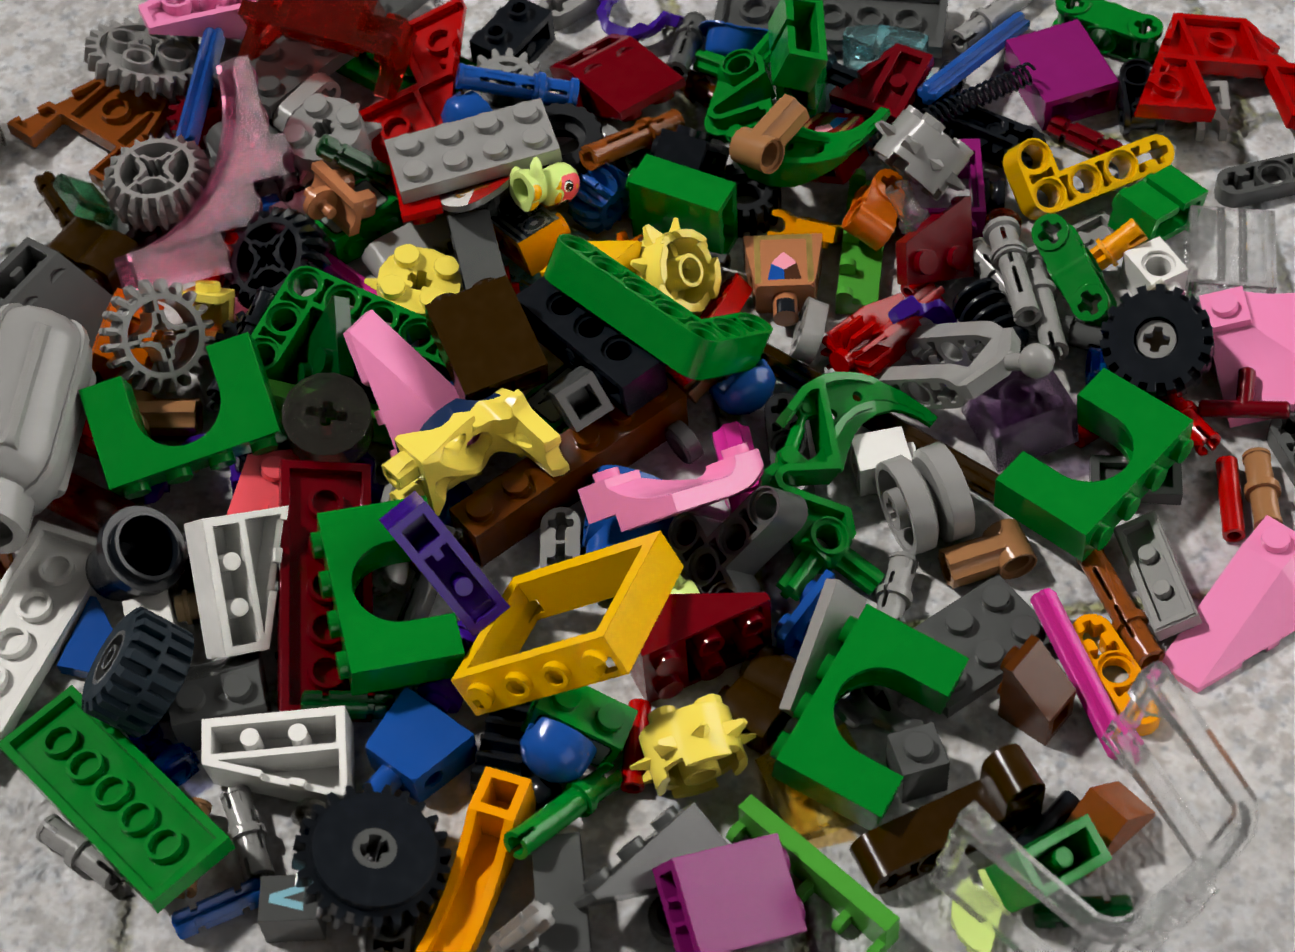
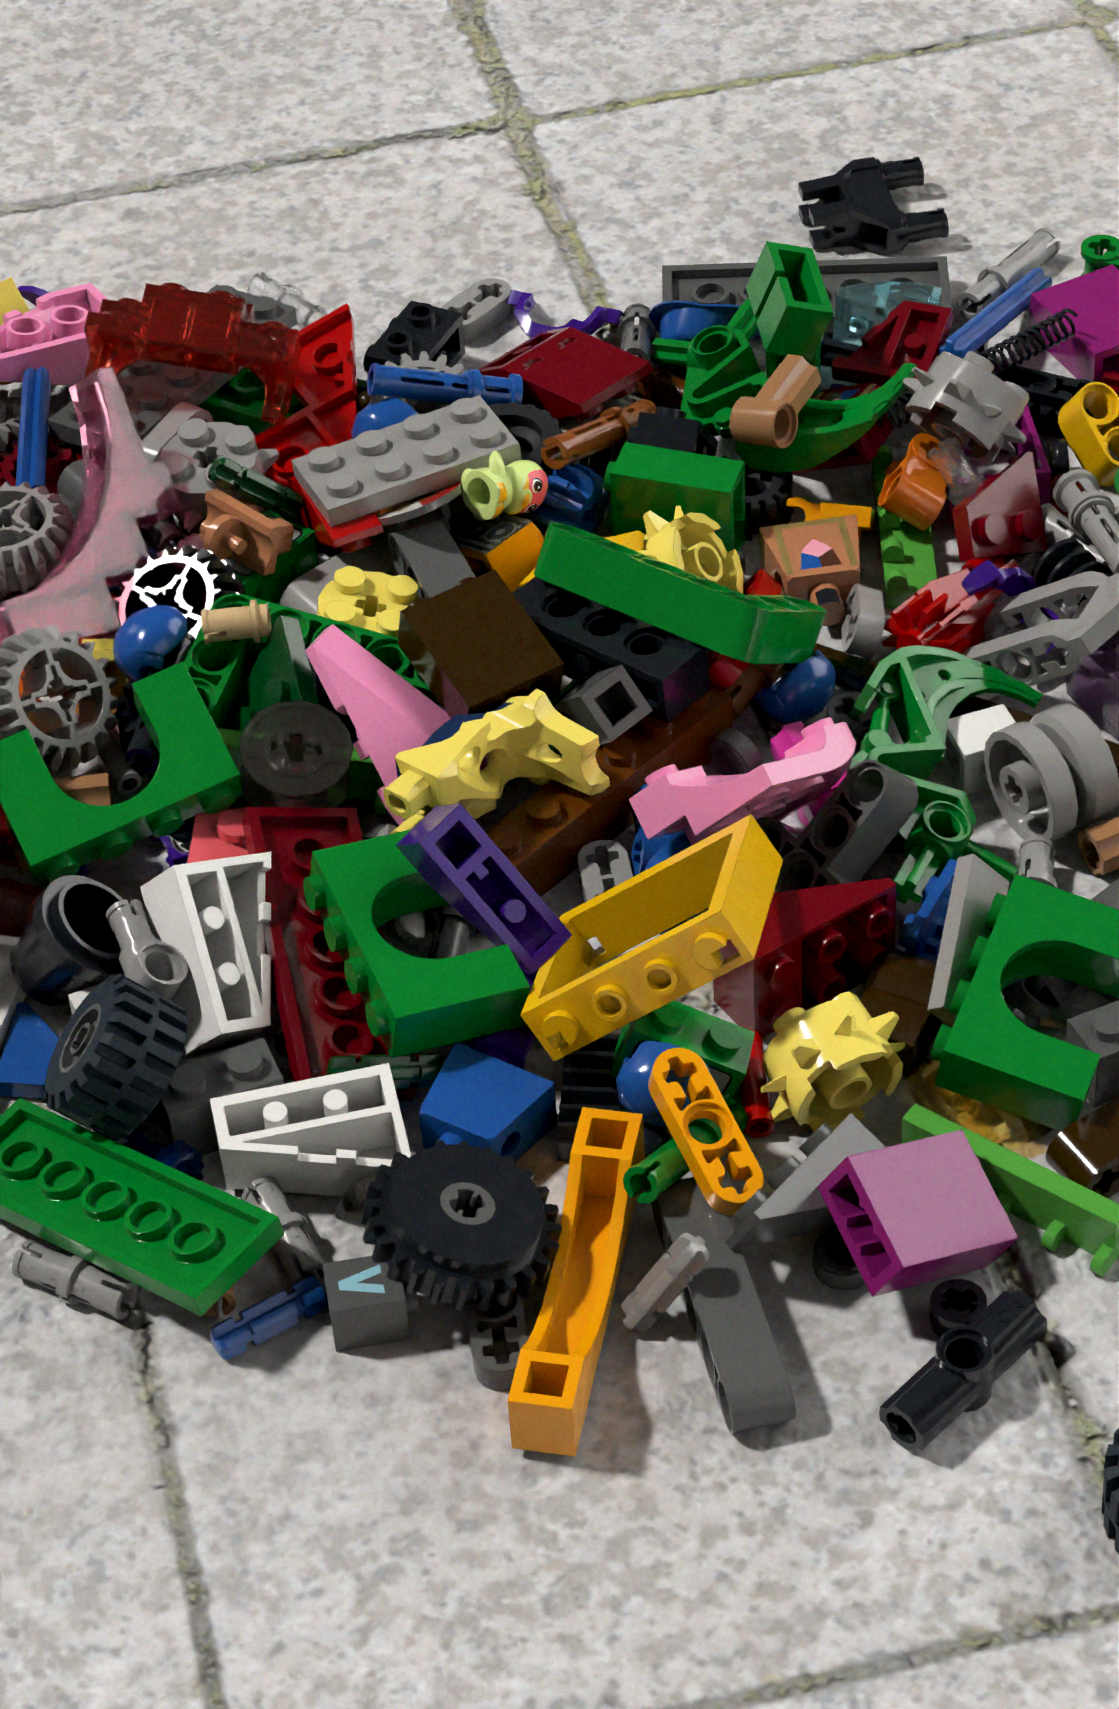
camera: 10 degrees left, 10 degrees down
(178, 583) = (142, 955): none -> light grey pin
(240, 292) = (147, 639): none -> blue hair
(301, 295) = (236, 623): none -> tan pin
(551, 773) = (707, 1104): none -> light orange beam

